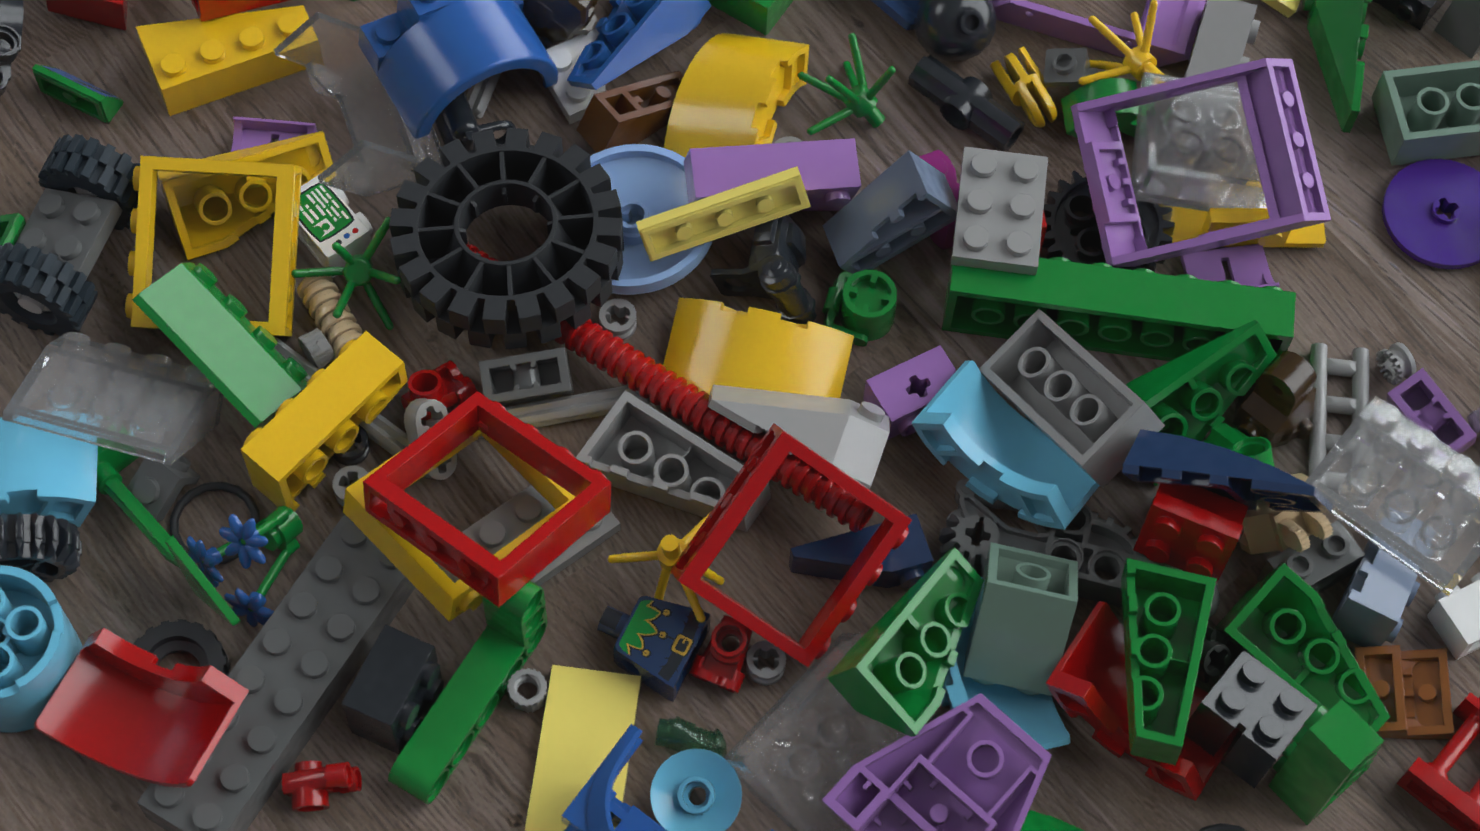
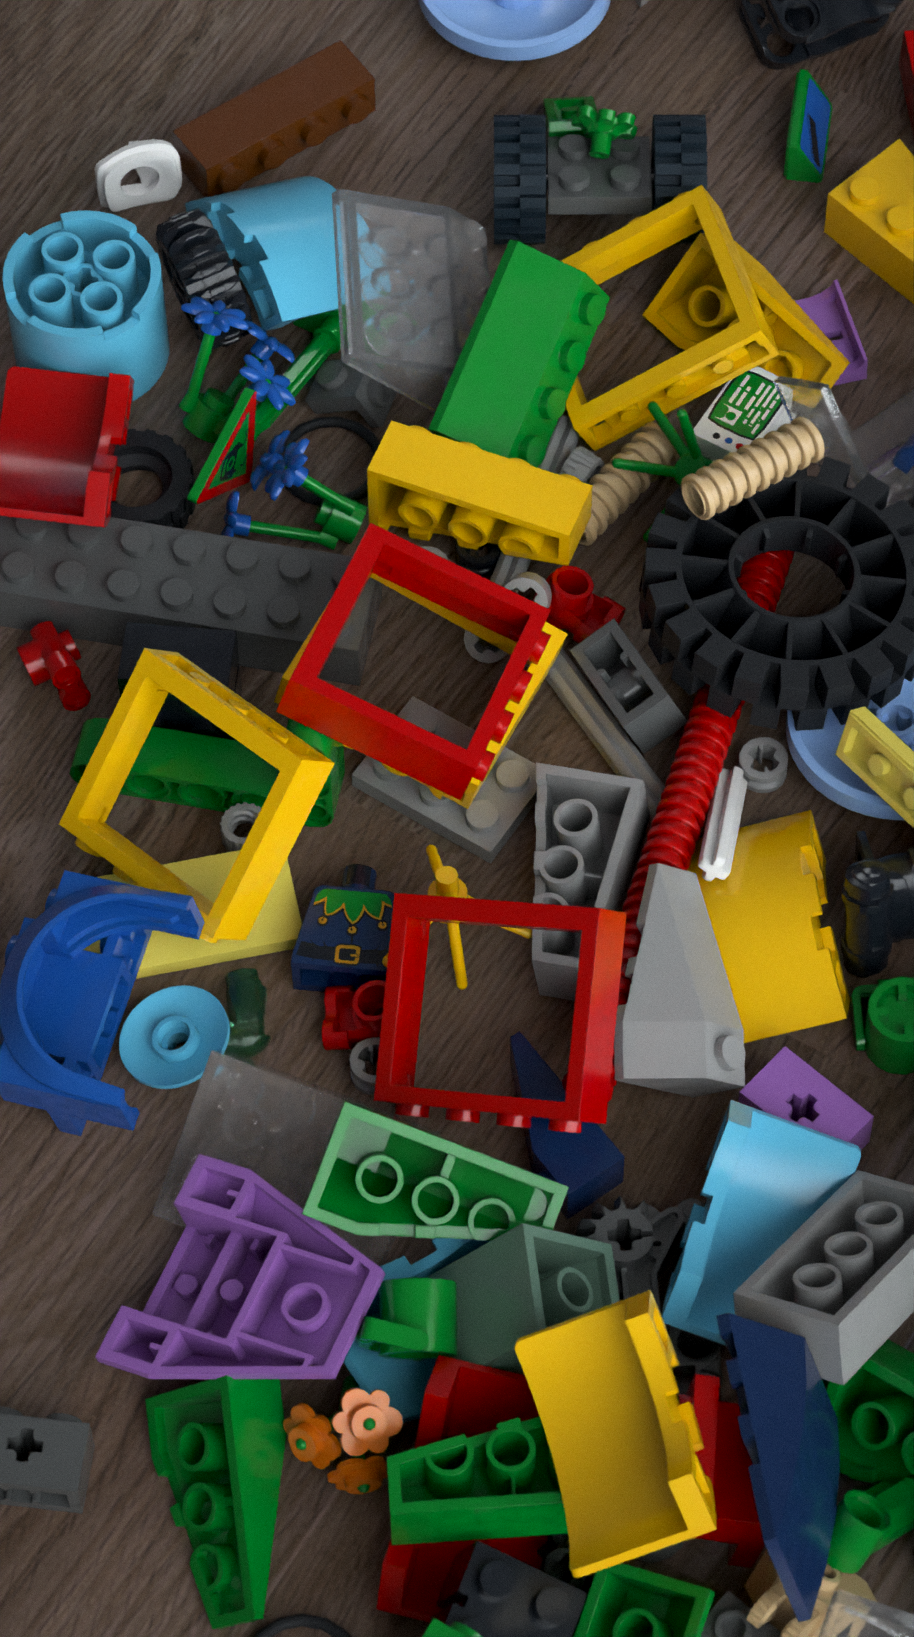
camera: 75 degrees right, 5 degrees down
(37, 210) = (603, 128): none -> green plant
(135, 592) = (211, 410): none -> plant
(415, 213) = (752, 468): none -> tan piece
(488, 641) = (275, 828): none -> yellow window
(677, 359) = (722, 825): none -> white axle
(1014, 687) = (414, 1320): none -> green piece
(1085, 753) = (363, 1423): none -> orange plant
(1194, 568) = (618, 1433): none -> yellow panel

